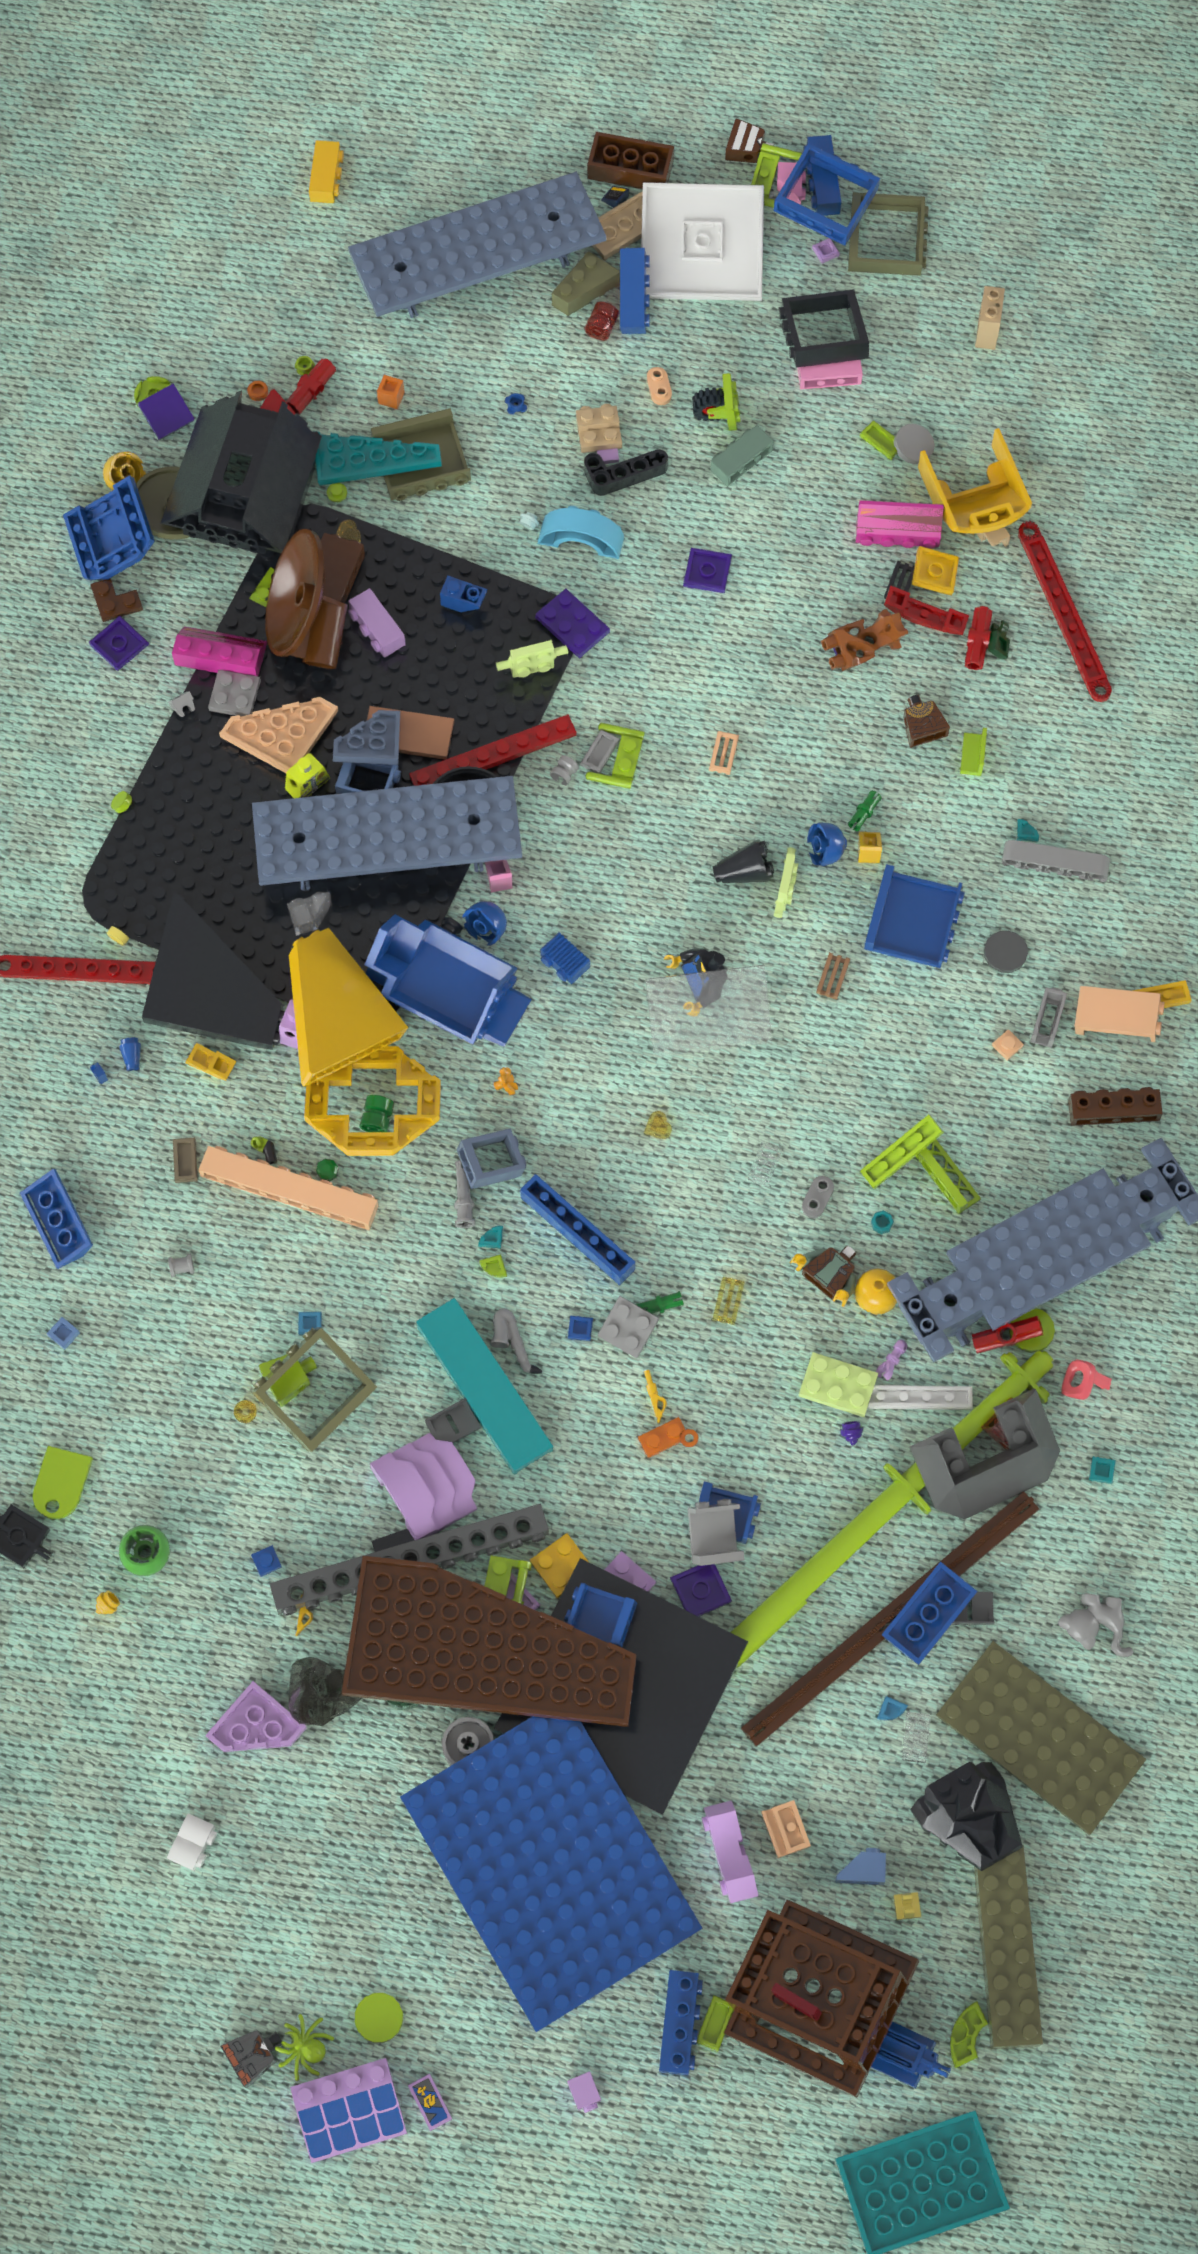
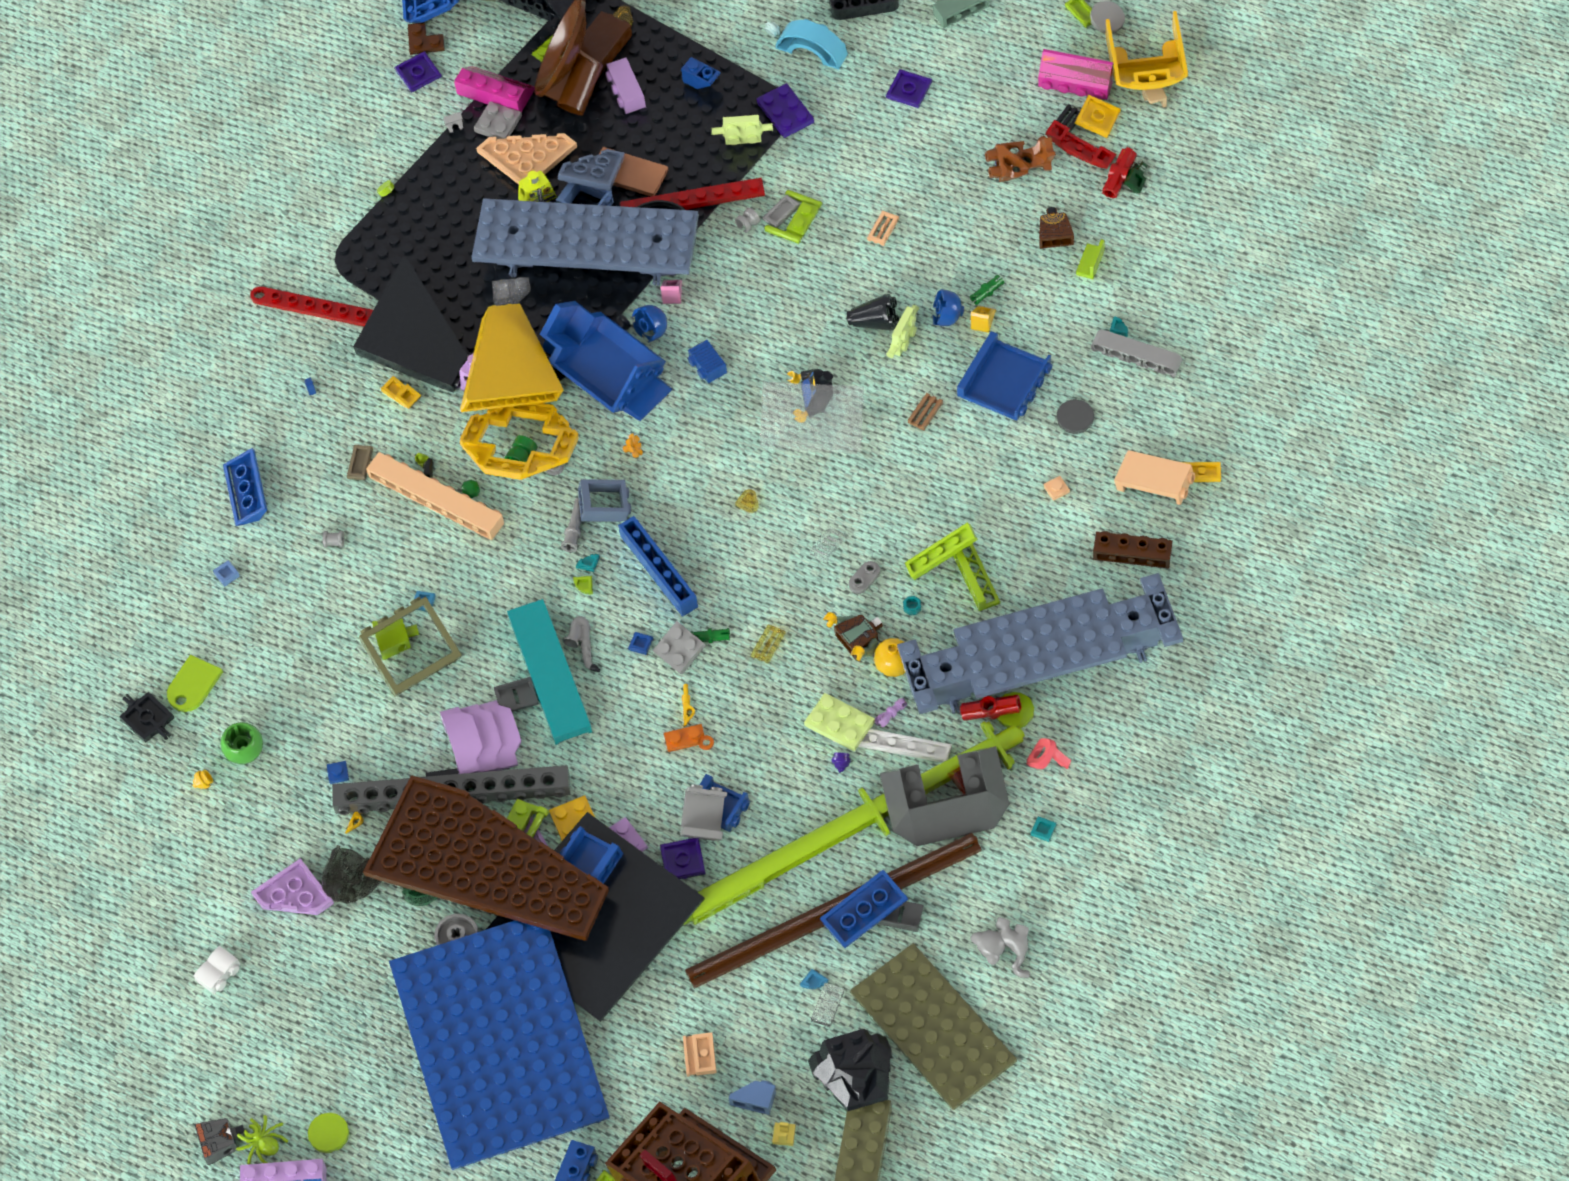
camera: 20 degrees right, 10 degrees down
(117, 935) = (354, 286): light yellow tile -> none
(130, 1052) = (339, 374): blue cone -> none
(242, 1405) = (353, 652): clear yellow plate -> none
(734, 1866) = (647, 1066): lavender brick -> none
(1054, 997) = (1103, 456): light grey window -> none
(1064, 611) = (1198, 164): red plate -> none

